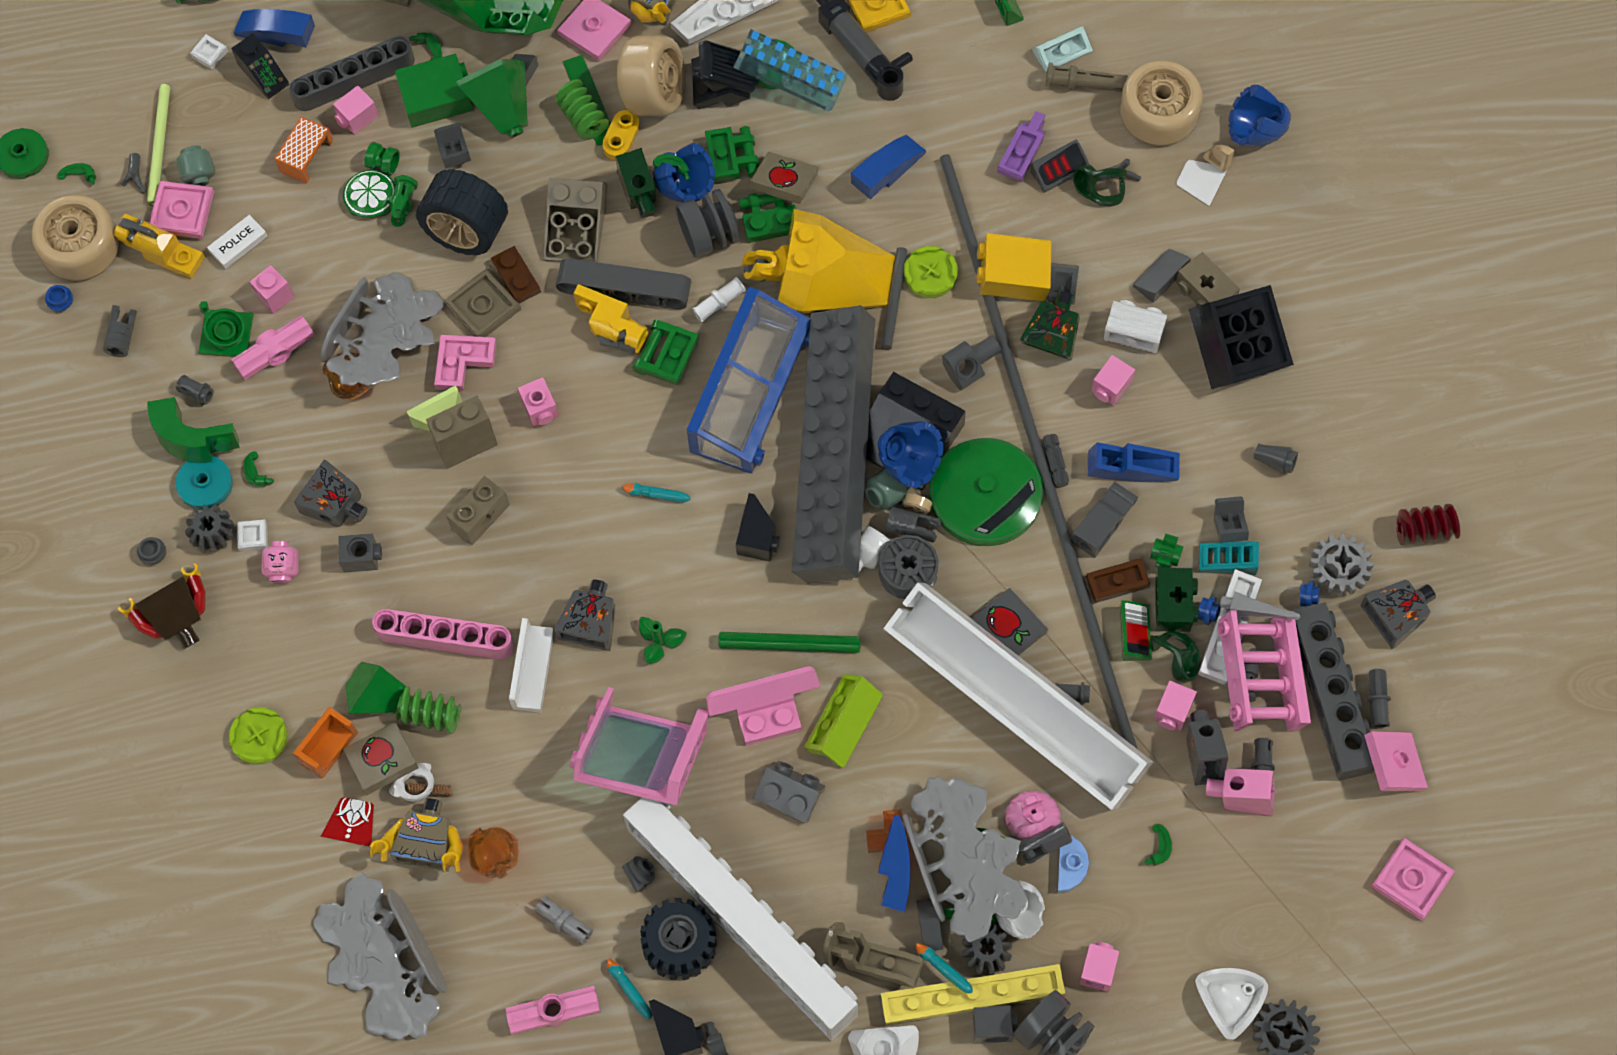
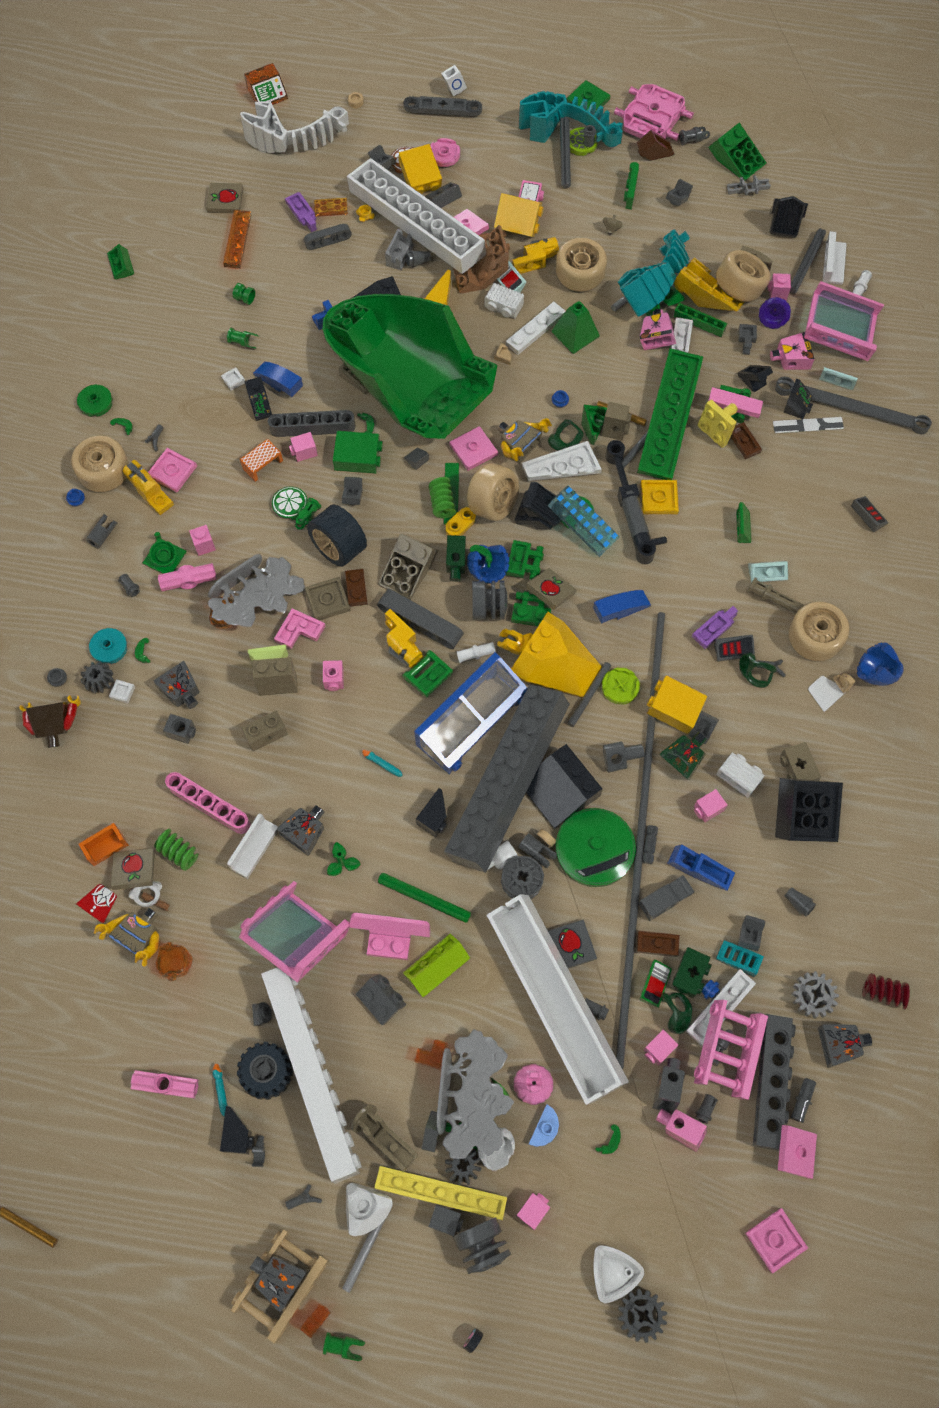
camera: 20 degrees right, 0 degrees up
(158, 144) = (181, 418): yellowish green piece -> none
(188, 442) = (101, 601): green arch -> none
(195, 165) = (192, 446): sand green head -> none
(237, 241) = (196, 502): white tile -> none
(258, 736) = (67, 822): lime tile -> none
(280, 562) = (129, 715): bright pink head -> none
(372, 958) = (68, 999): light grey plant -> none
(373, 690) = (147, 822): green slope -> none
(382, 158) = (305, 482): green wheel -> none
(500, 94) = (394, 469): green slope -> none
(563, 920) = (199, 1025): light grey pin -> none
(884, 491) = (530, 819): sand green head -> none
(896, 865) = (426, 1083): blue slope -> none
(911, 452) = (554, 803): blue hair -> none
(944, 968) = (422, 1152): teal piece -> none
(1044, 843) = (532, 1107): dark grey bar -> none
(1161, 274) = (772, 746): dark grey slope -> none
(1166, 551) = (698, 937): green gear -> none
(1250, 607) = (735, 998): light grey piece -> none
(1309, 594) = (784, 1007): blue plate -> none

